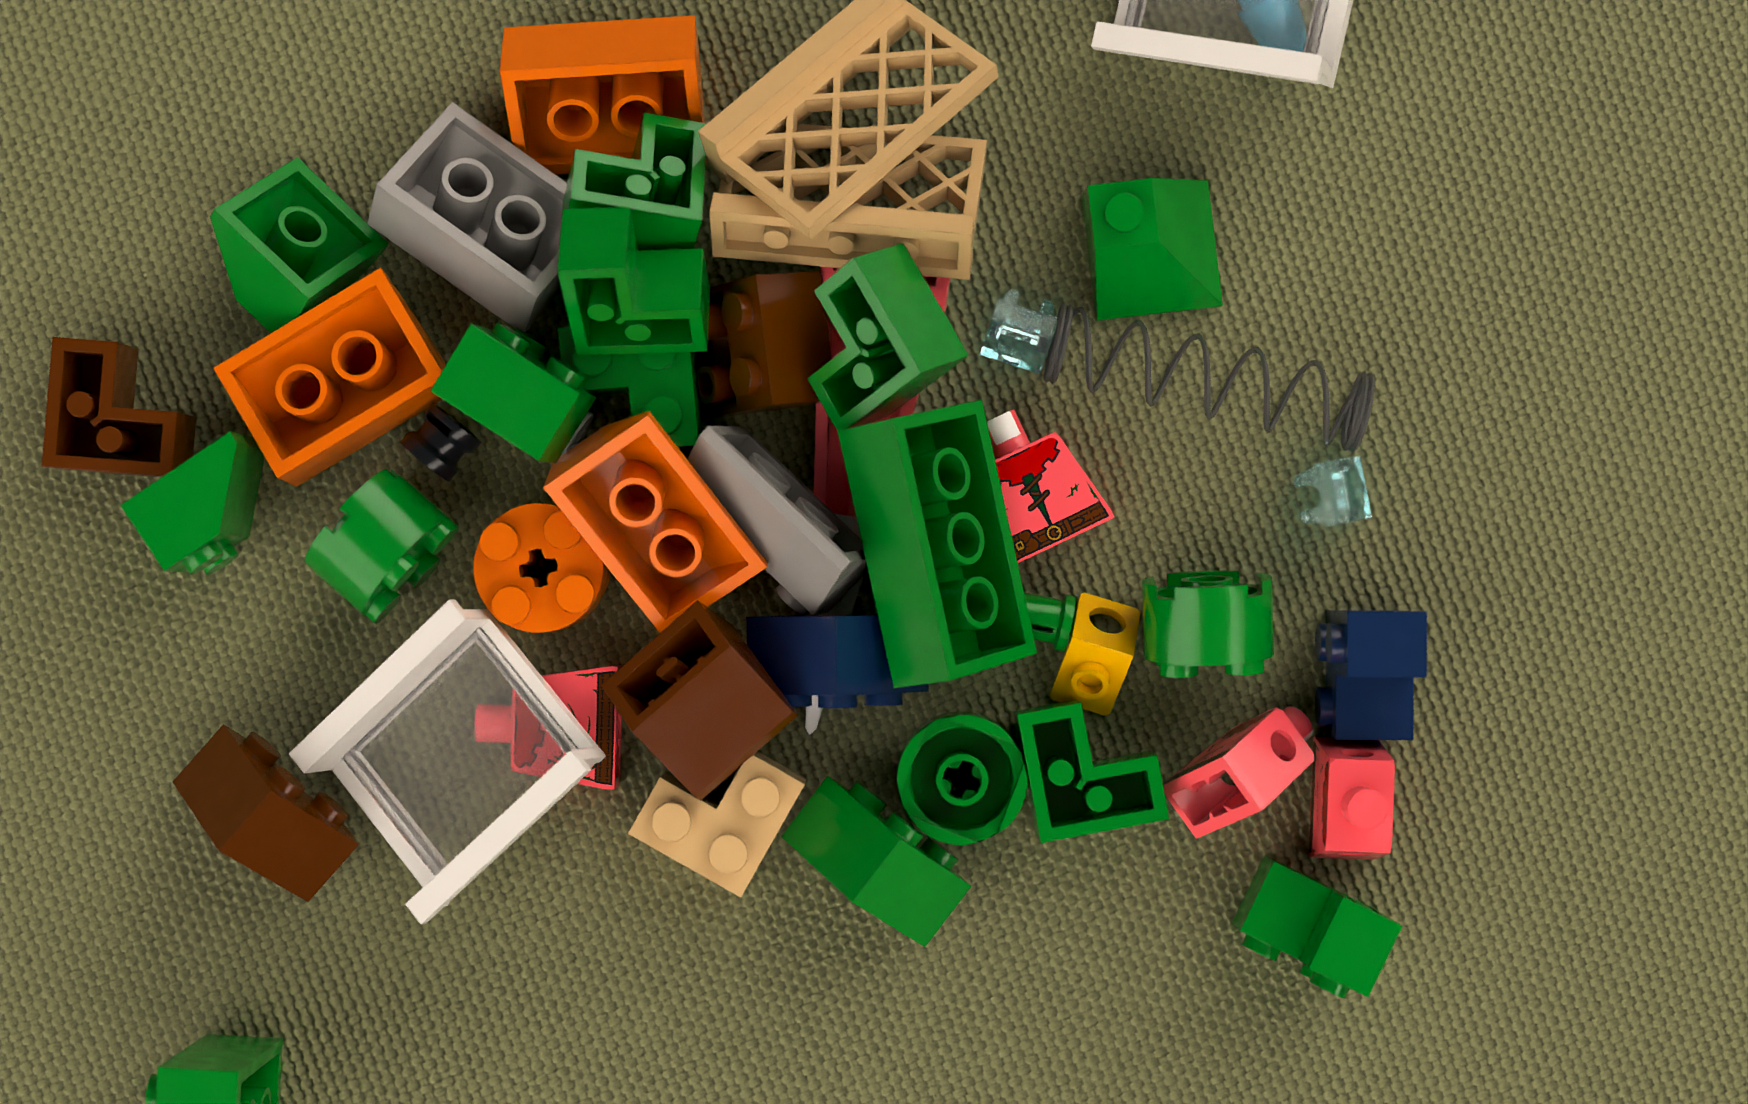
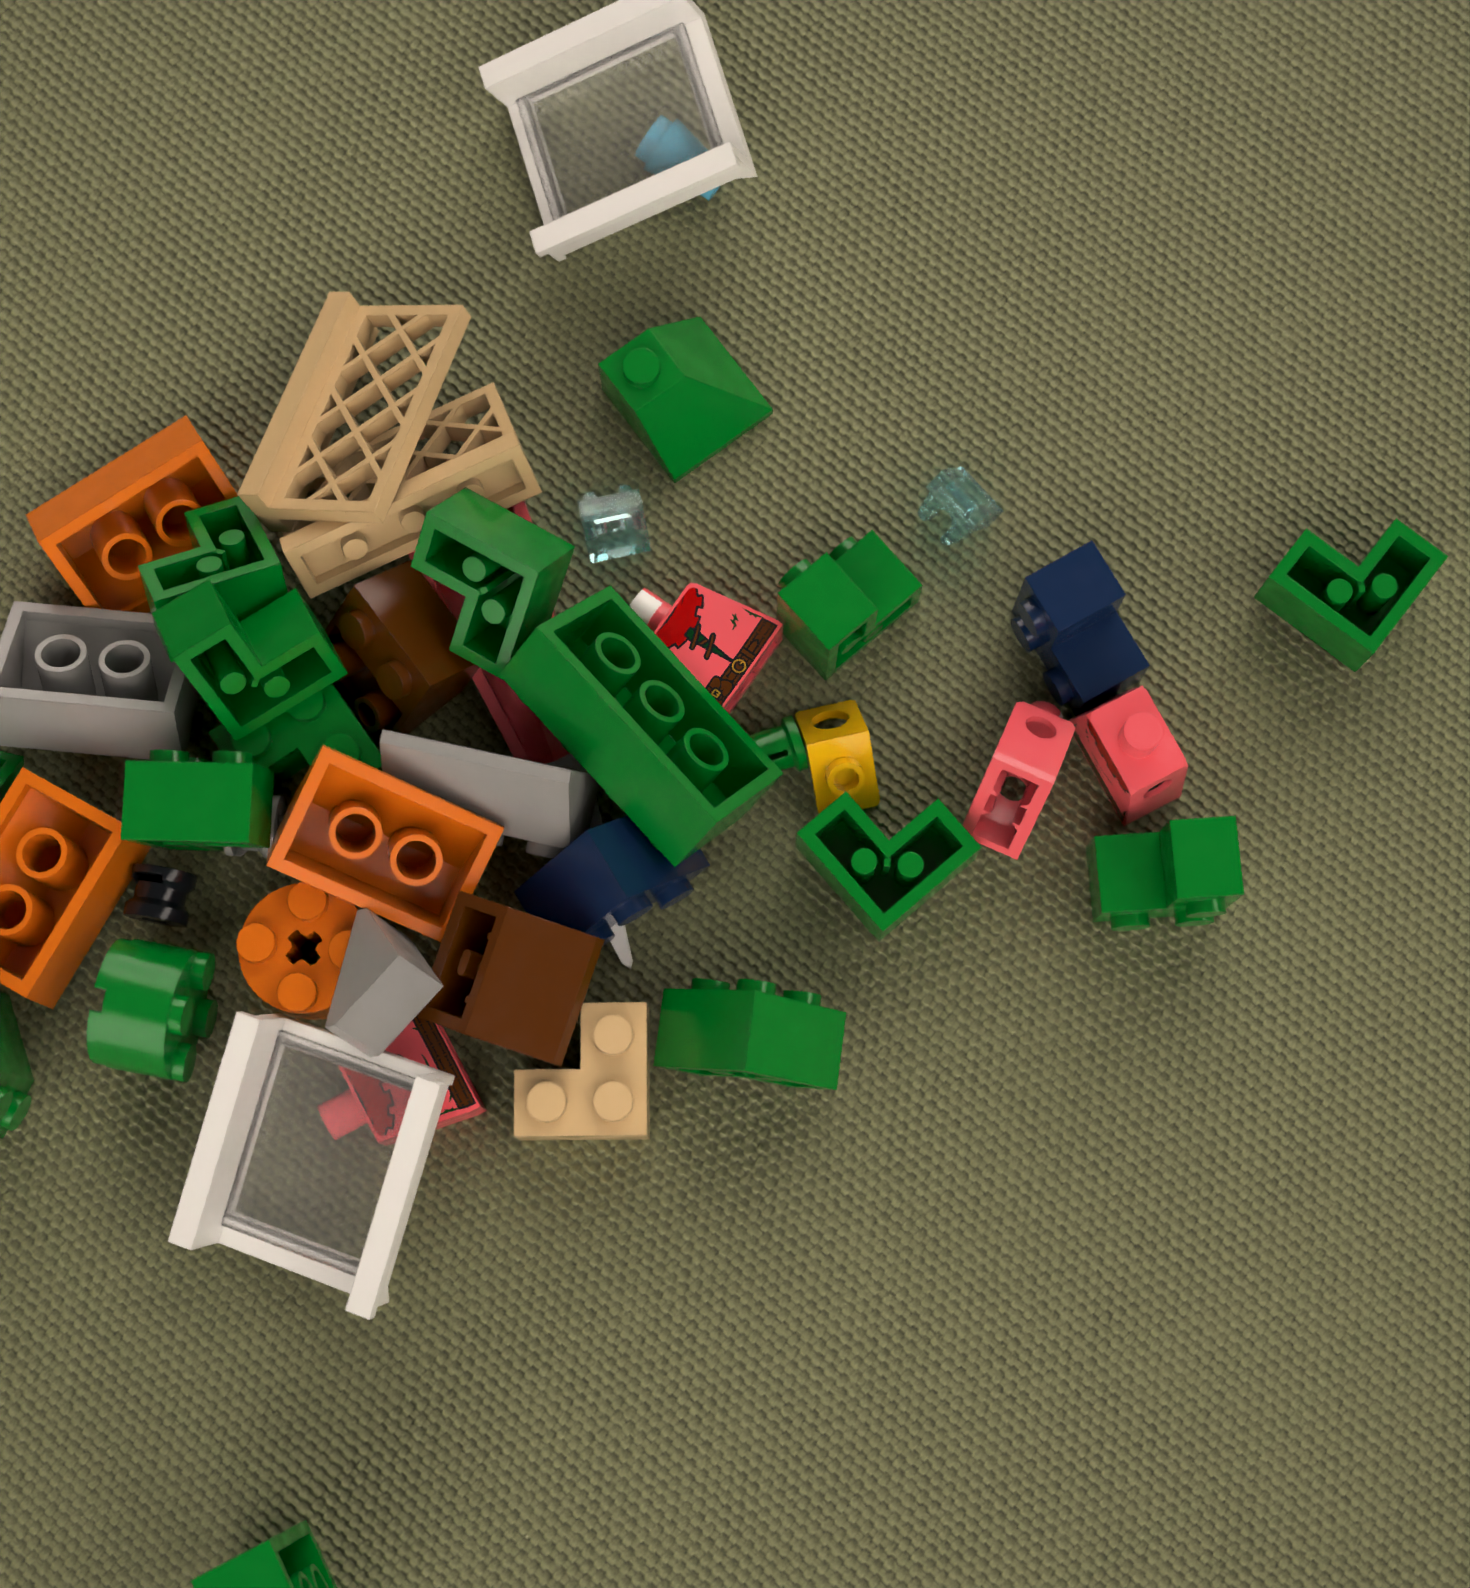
camera: 25 degrees left, 10 degrees down
(263, 814) = (170, 1312): reddish brown brick -> none
(586, 643) = (379, 985): none -> light grey slope
(977, 810) = (804, 893): green brick -> none
(1182, 526) = (844, 601): none -> green brick
(1208, 622) = (914, 665): green brick -> none
(1355, 409) = (935, 434): dark grey piece -> none
(1631, 789) = (1350, 605): none -> green brick

